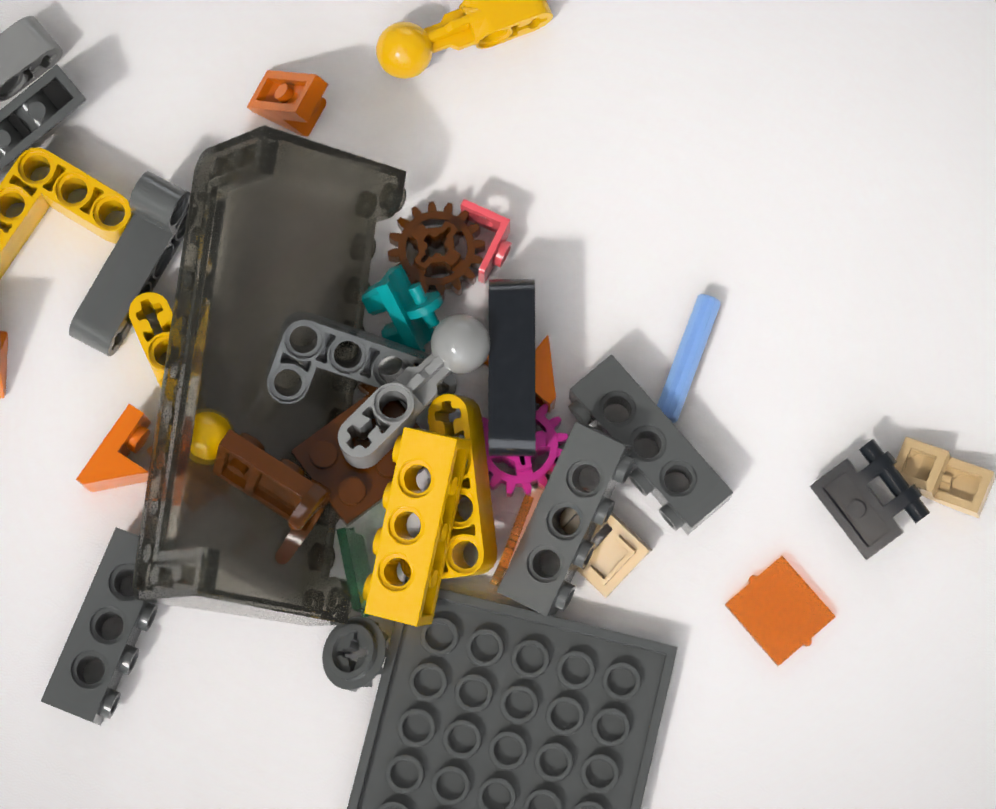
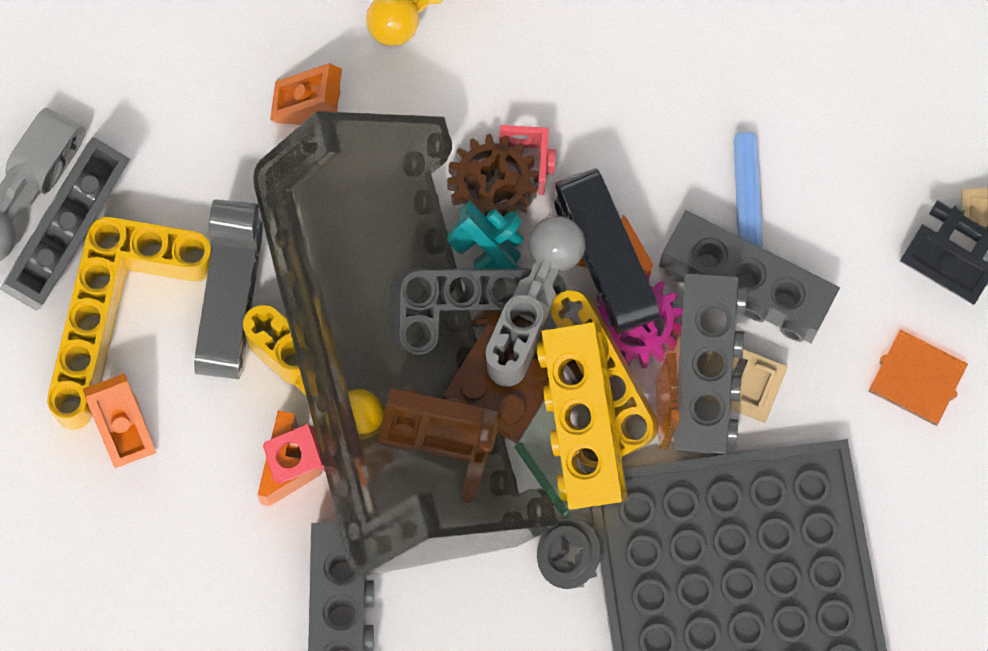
camera: 25 degrees left, 5 degrees down
(139, 463) = (310, 453): none -> coral bracket

